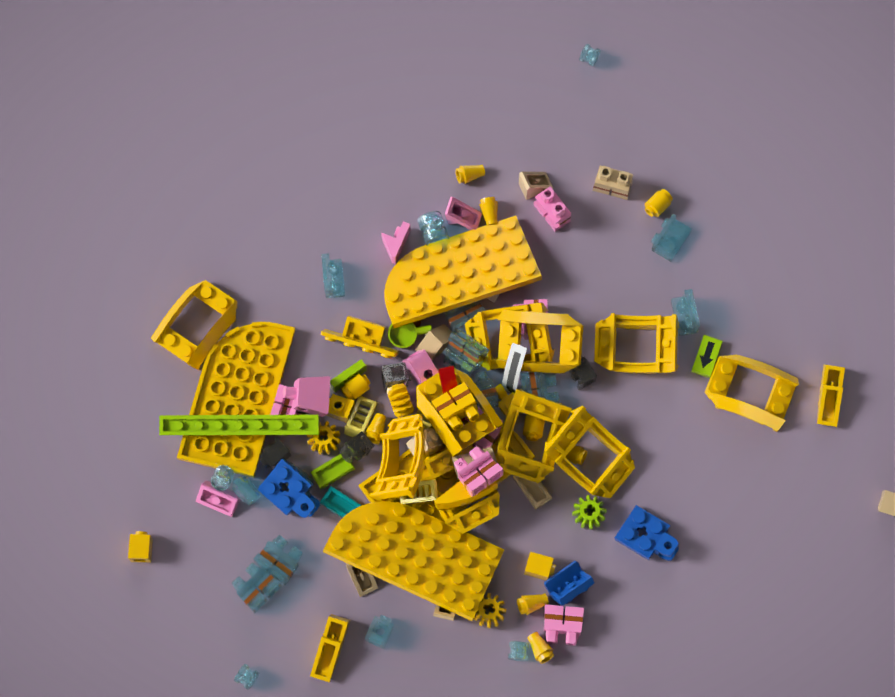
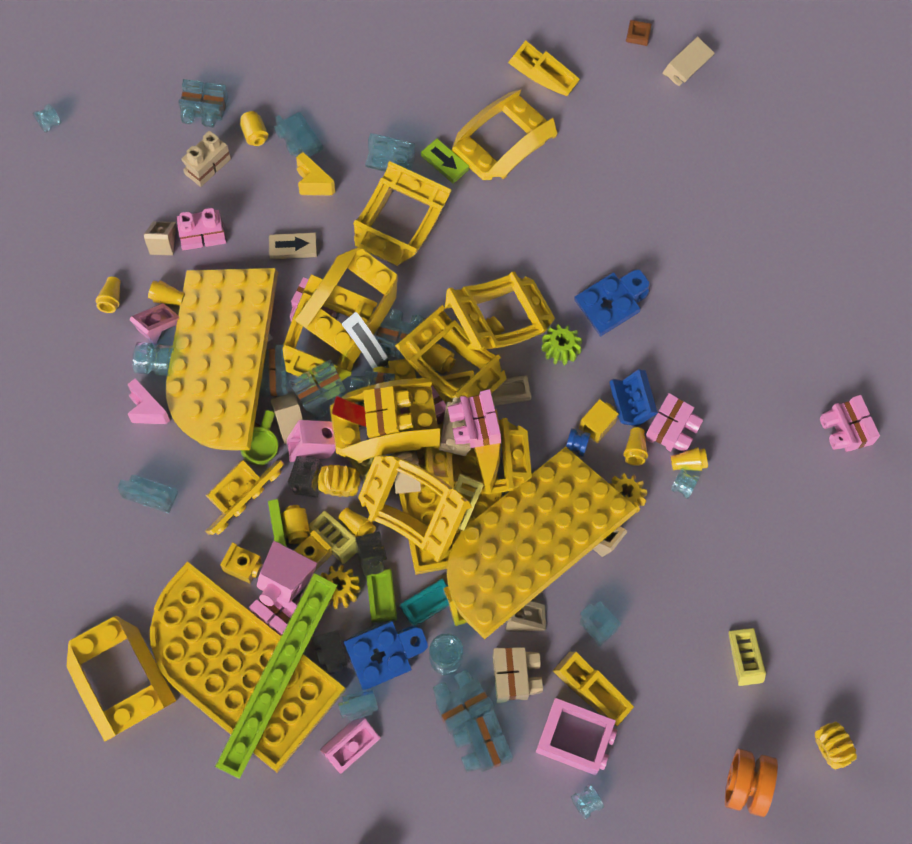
camera: 70 degrees left, 5 degrees down
(222, 483) = (330, 725): clear light blue wheel -> none
(287, 629) = (570, 759): none -> bright pink window
(307, 533) = (446, 654): none -> clear light blue wheel
(310, 356) = (245, 572): none -> yellow brick
(323, 584) = (511, 674): none -> tan hips
(514, 557) = (578, 442): none -> blue wheel
(575, 279) = (292, 246): none -> tan tile
(583, 374) = (407, 282): clear smoke brick -> none
(637, 268) = (314, 179): none -> yellow slope
(663, 155) = (202, 102): none -> clear light blue hips

